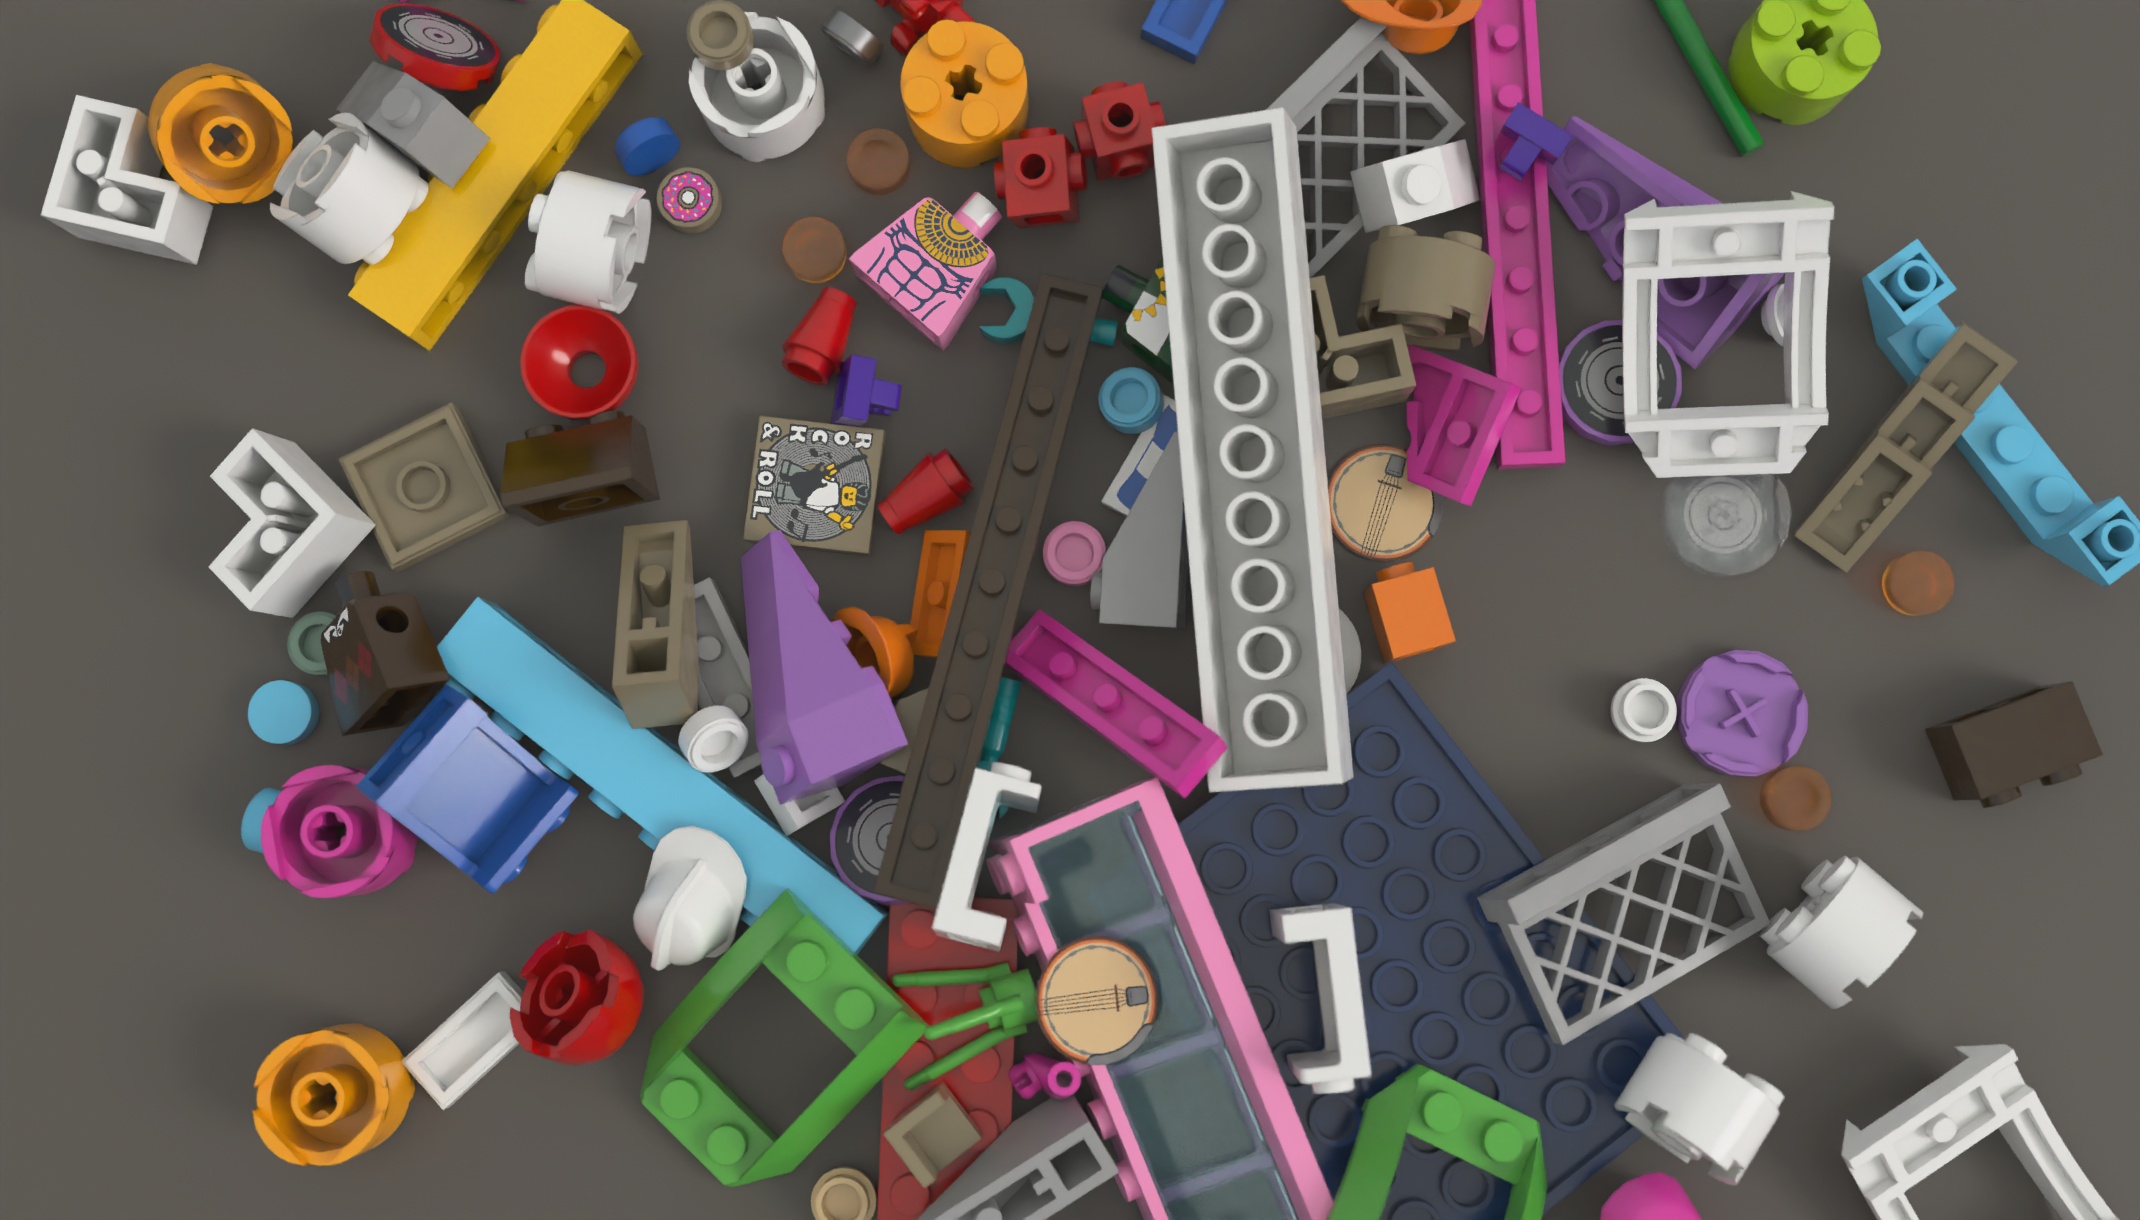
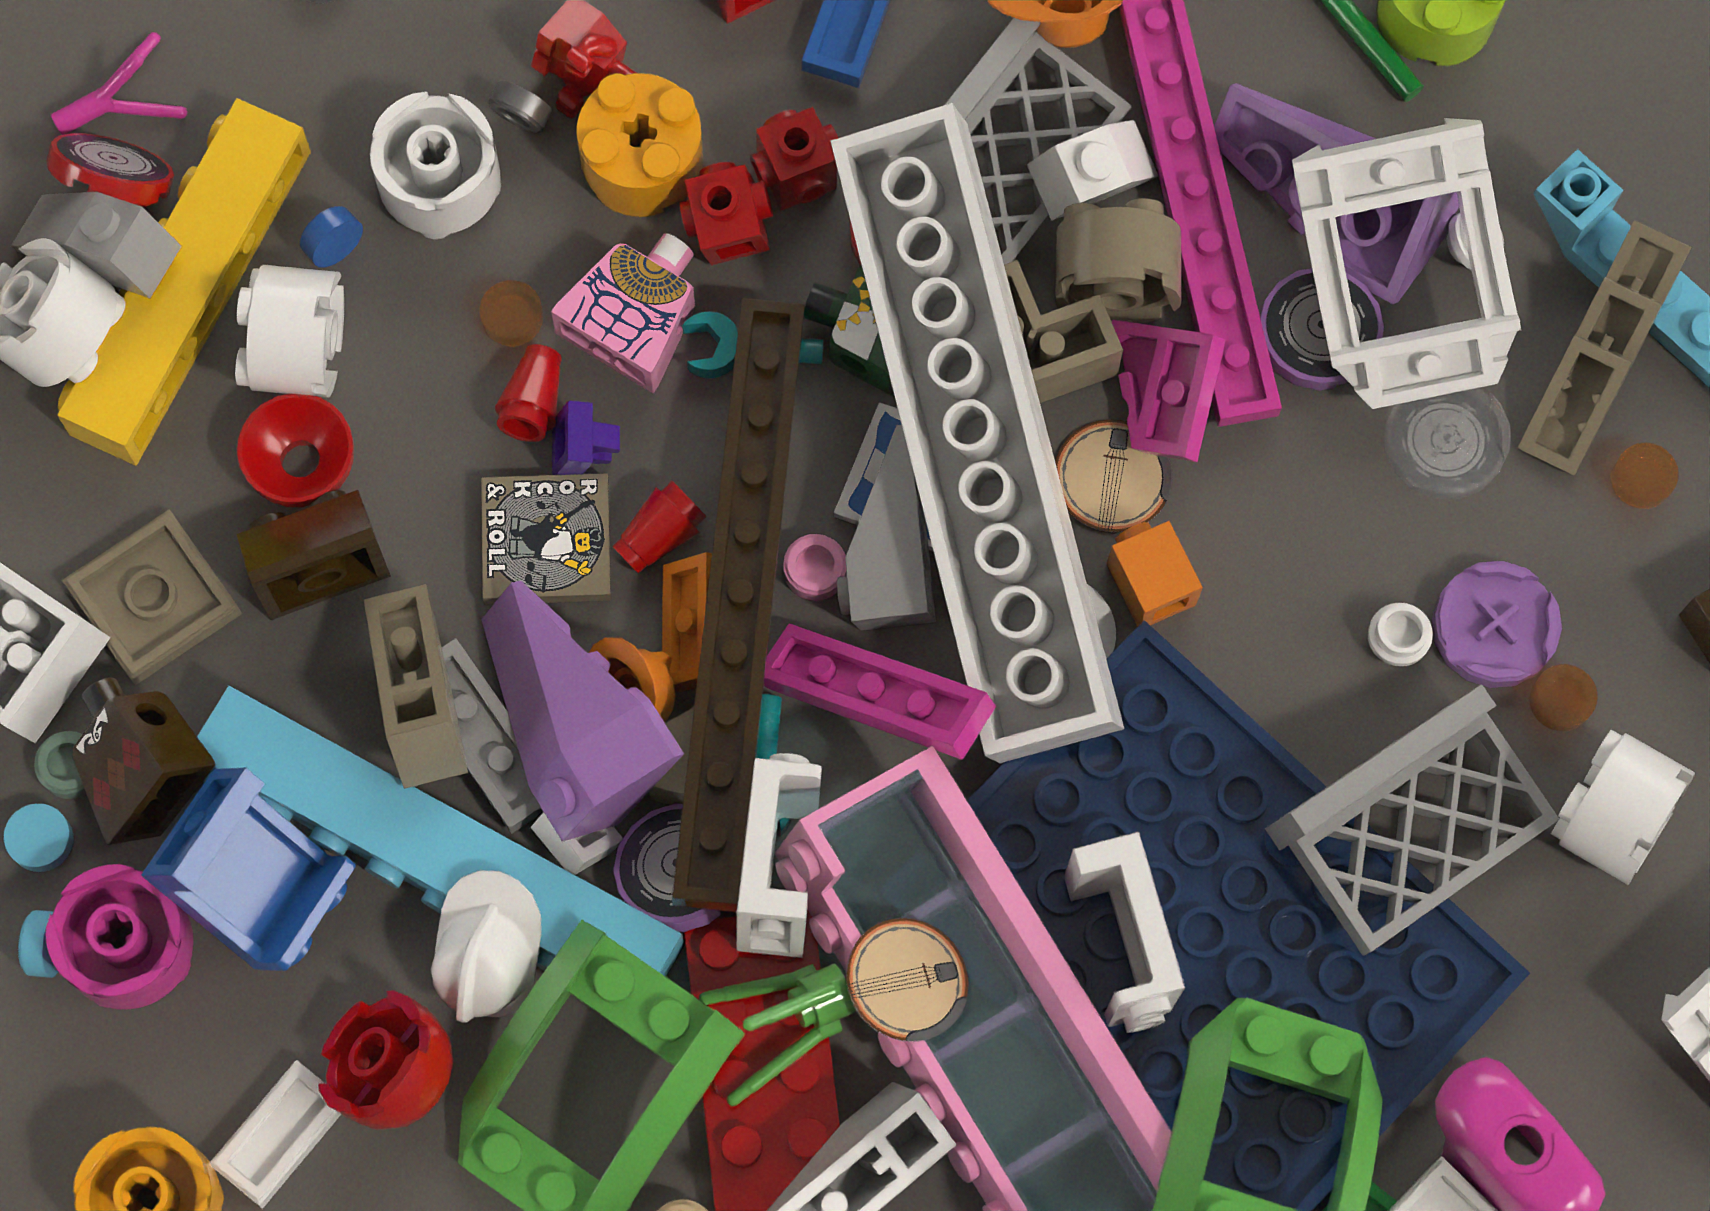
camera: 15 degrees left, 10 degrees down
(689, 200) = (379, 283): tile -> none
(713, 739) = (486, 786): white tile -> none
(720, 35) = (397, 117): dark tan tile -> none
(878, 161) = (562, 221): clear orange tile -> none
(932, 1134) = (764, 1136): dark tan panel -> none
(1042, 1072) = (871, 1070): dark pink arm -> none
(1131, 400) = (848, 411): medium azure tile -> none
(1532, 138) = (1195, 109): dark purple tile -> none
(1700, 1106) = (1511, 986): white brick -> none

